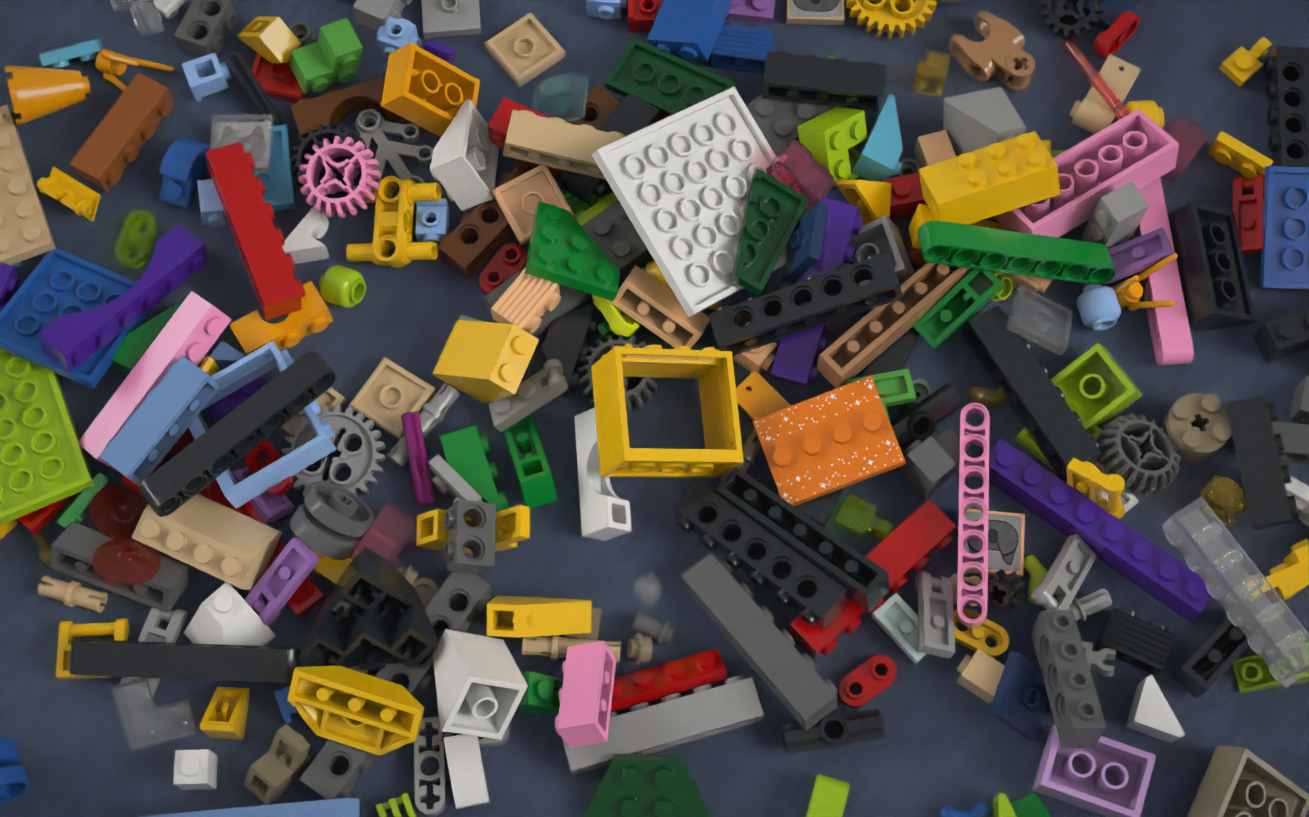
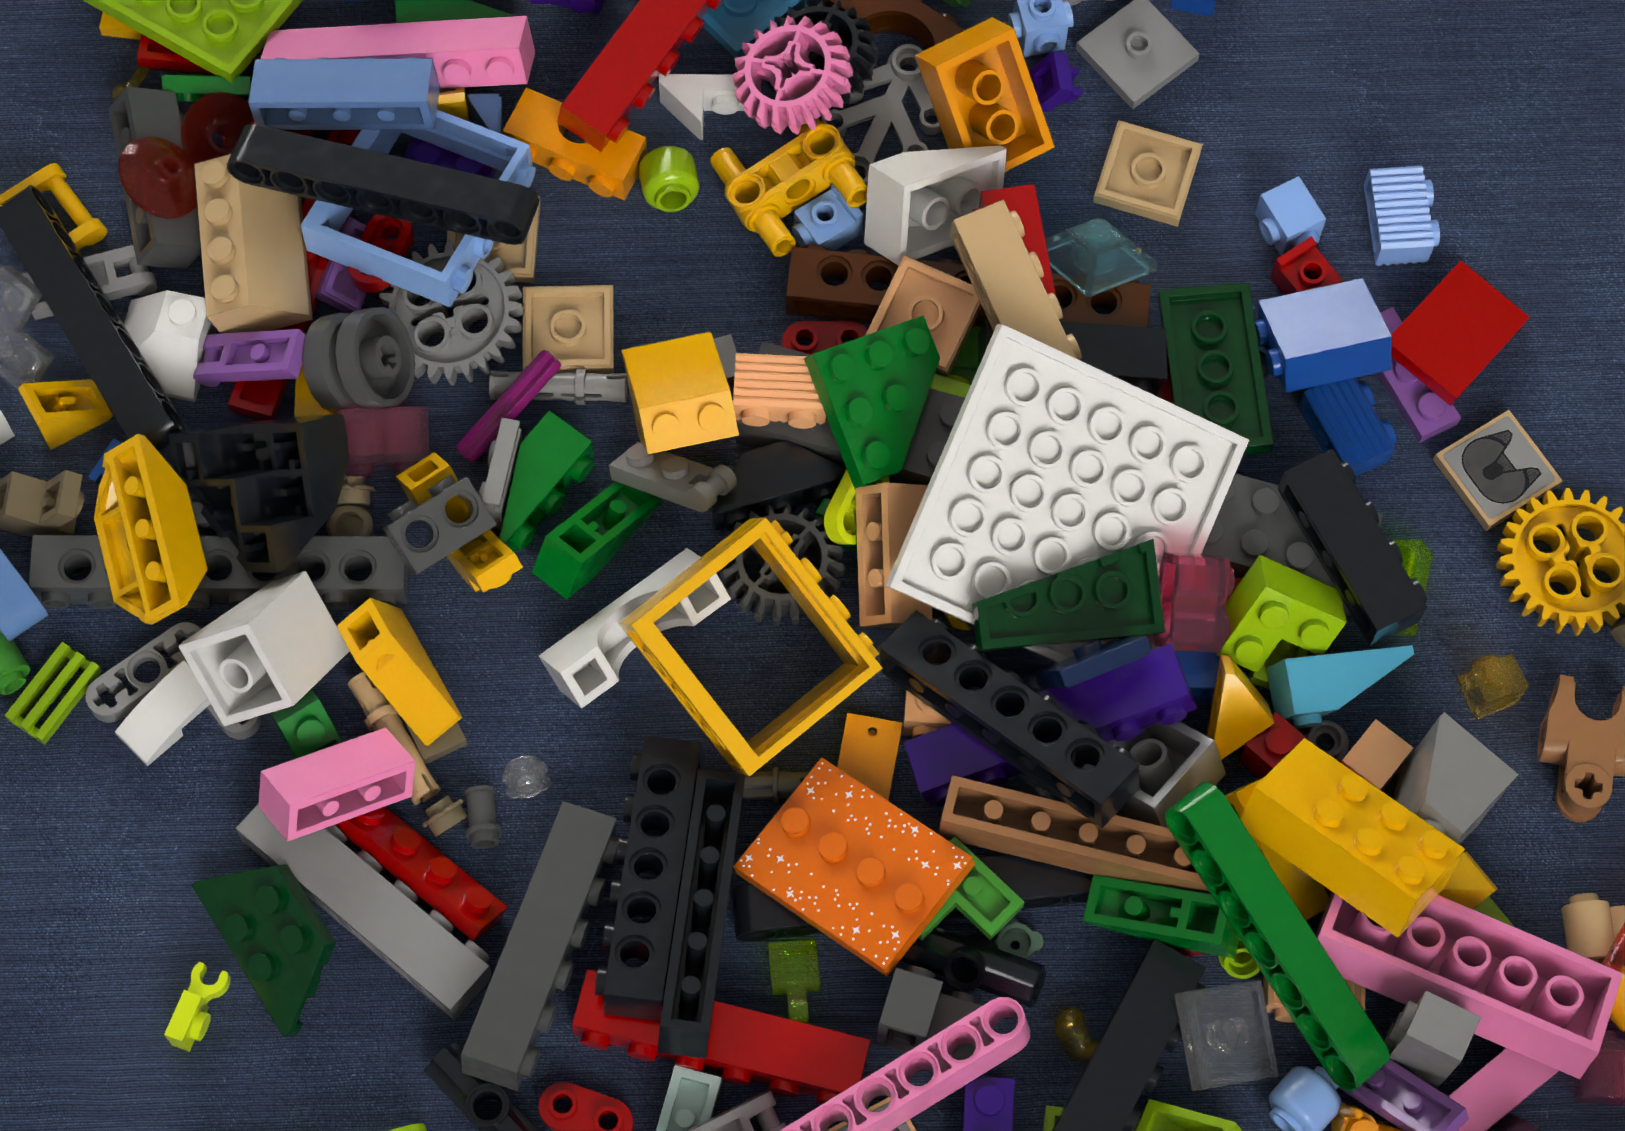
camera: 55 degrees right, 0 degrees up
(72, 594) = (97, 153): tan pin -> none

